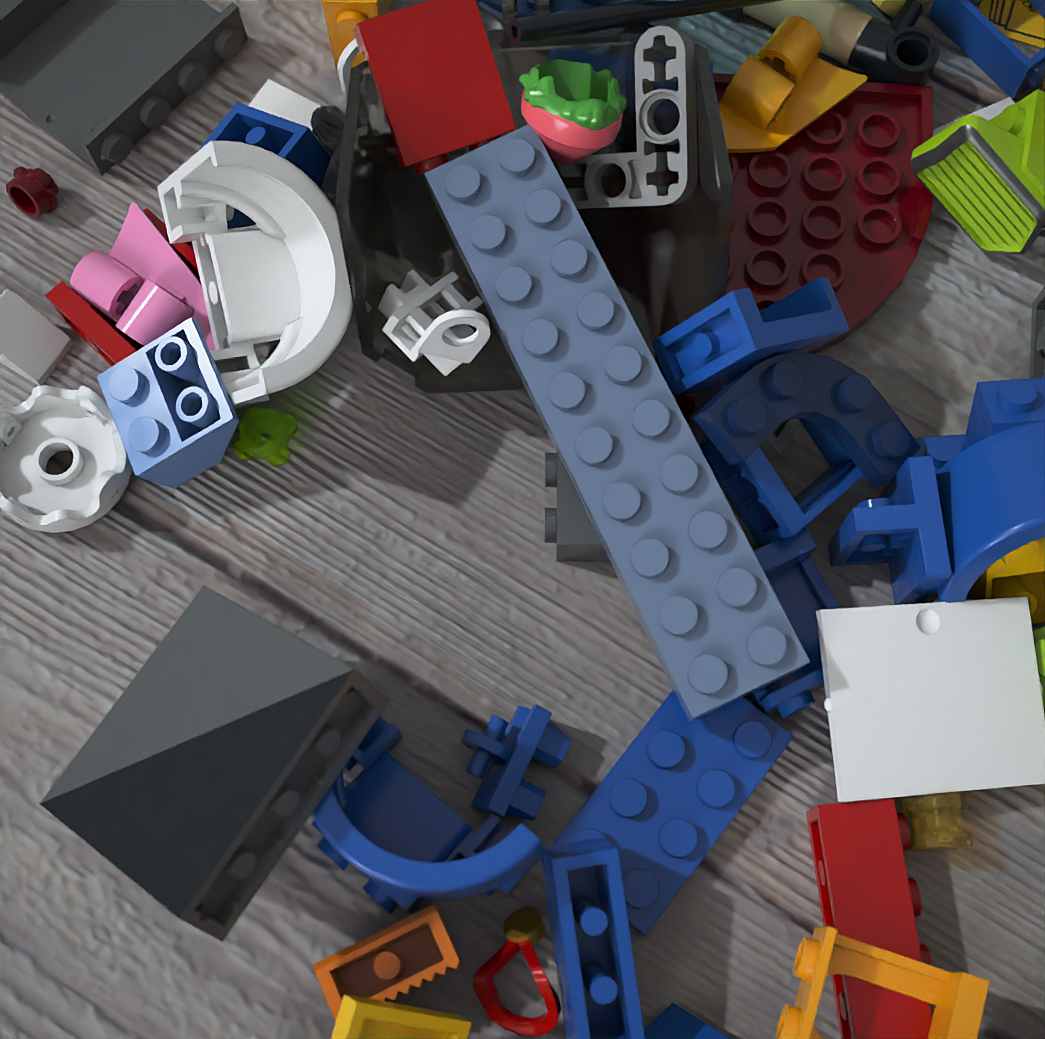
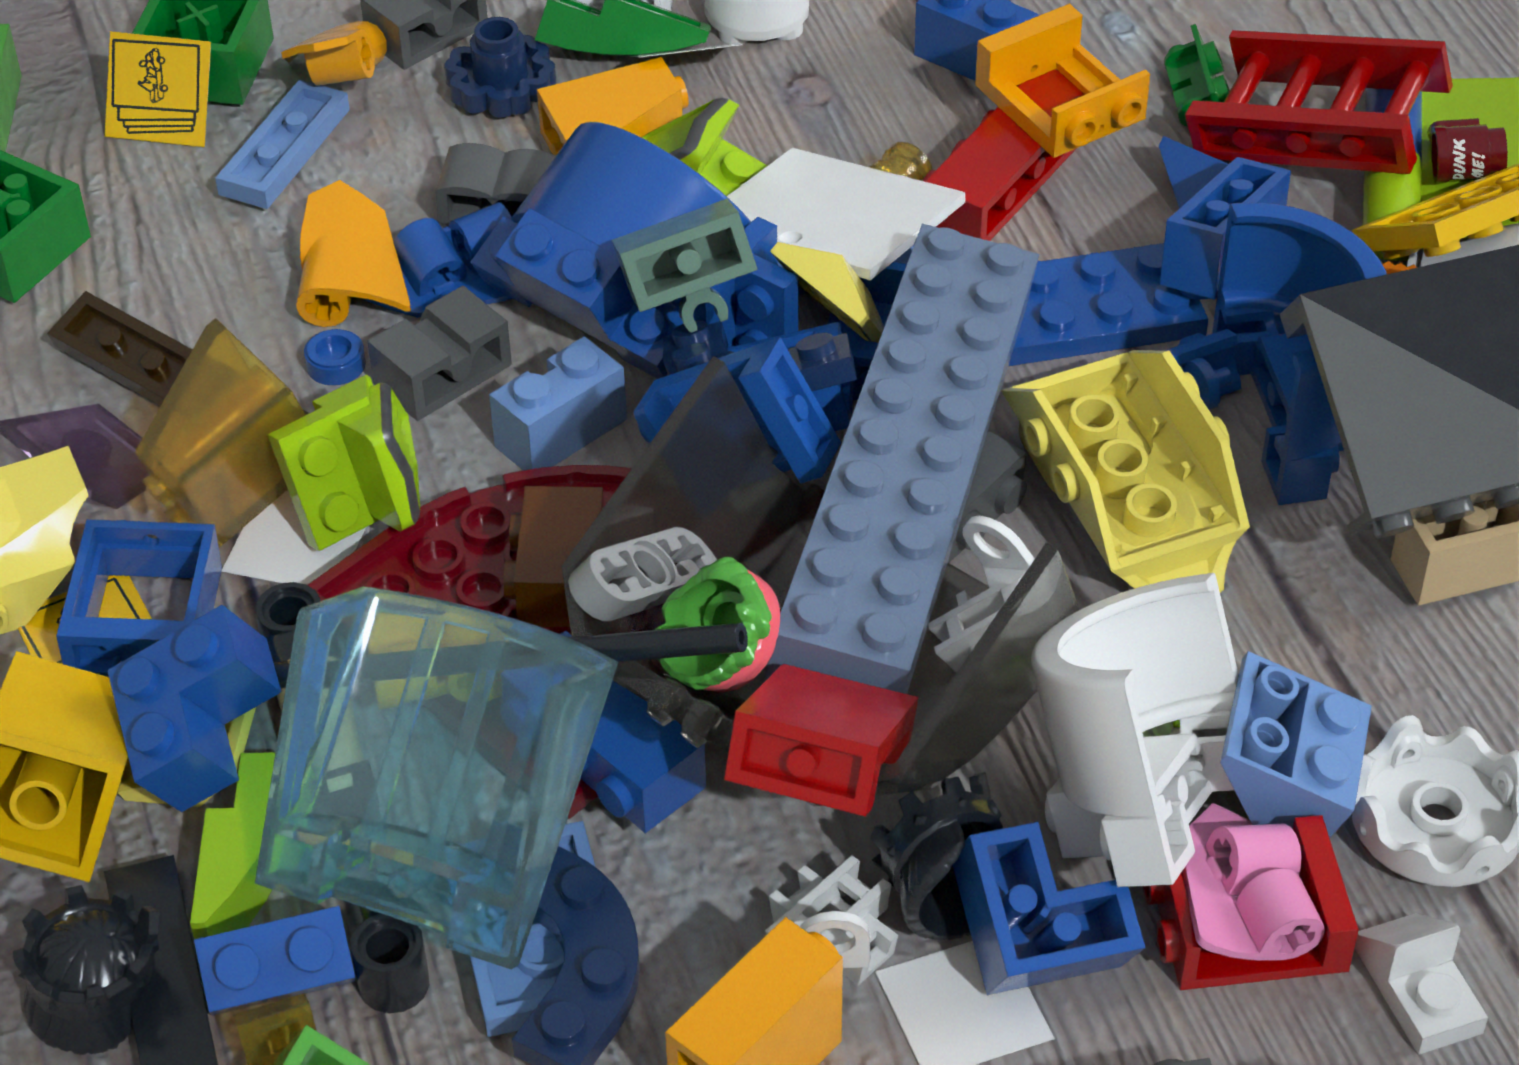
camera: 140 degrees left, 25 degrees down
(483, 591) = (1137, 464): none -> light yellow slope
(789, 200) = (544, 538): none -> reddish brown brick
(829, 568) = (834, 285): none -> light yellow slope
(933, 369) = (558, 413): none -> medium blue brick
(939, 435) = (686, 260): none -> sand green brick

